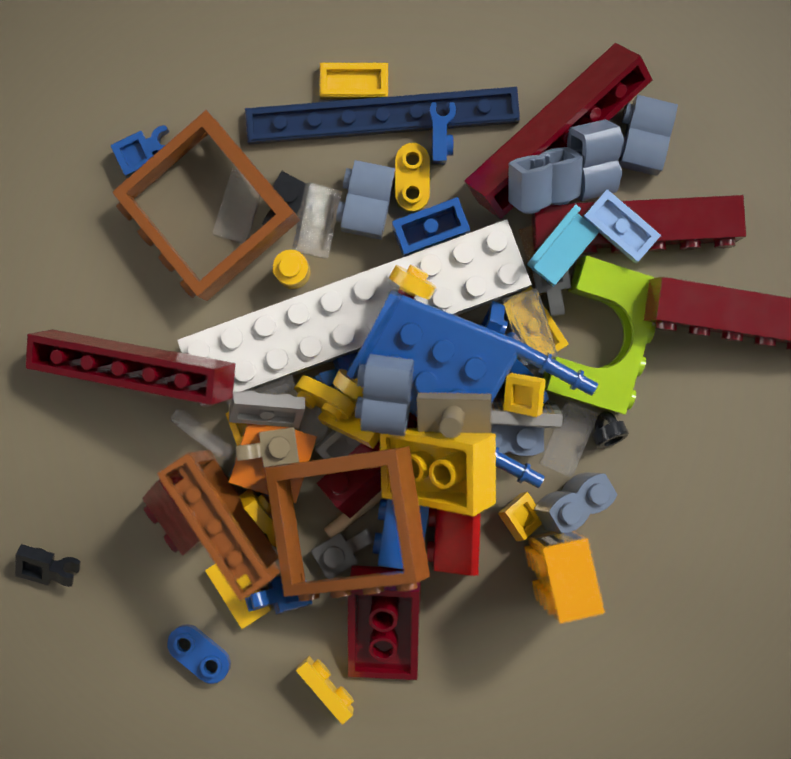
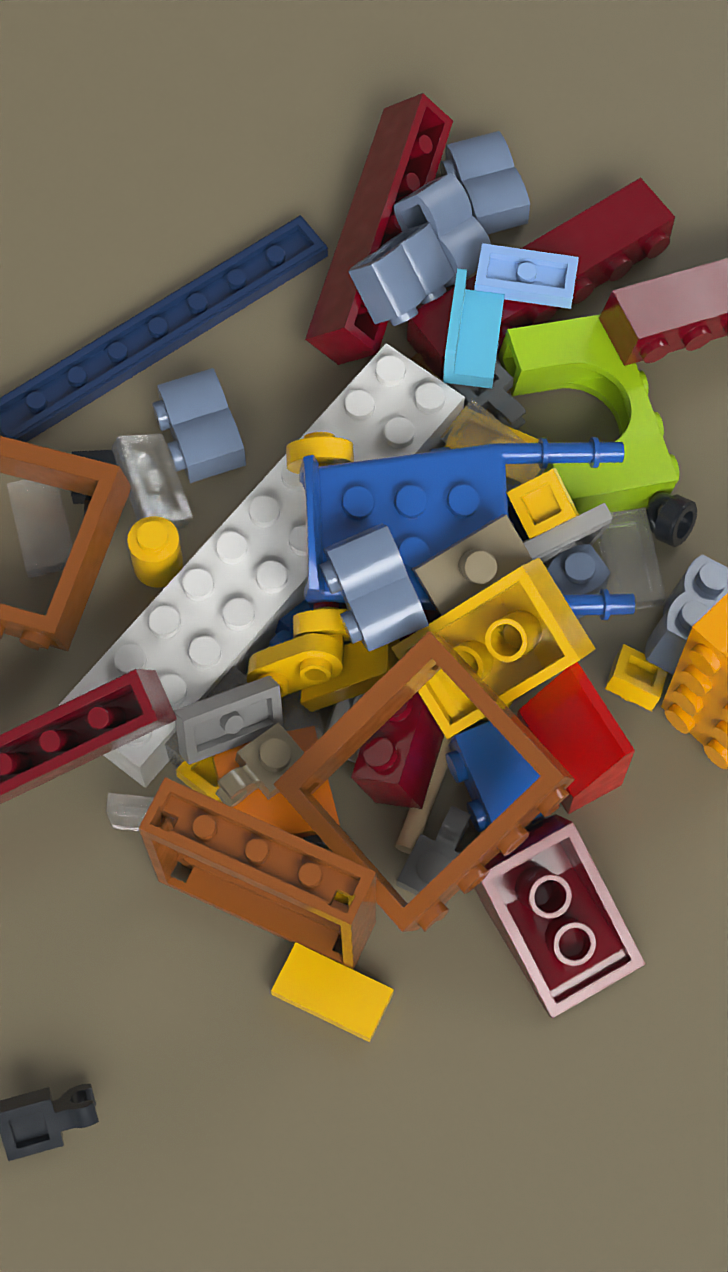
camera: 35 degrees left, 20 degrees down
(163, 509) = (192, 919): dark red slope -> none
(200, 651) = (330, 1115): blue plate -> none
(275, 597) = (393, 955): blue plate -> none
(334, 698) = (556, 1052): yellow plate -> none
(353, 80) = (97, 311): yellow tile -> none
(412, 176) = (238, 374): yellow plate -> none
(430, 227) = (295, 404): blue brick -> none
(441, 142) = (248, 315): blue plate -> none

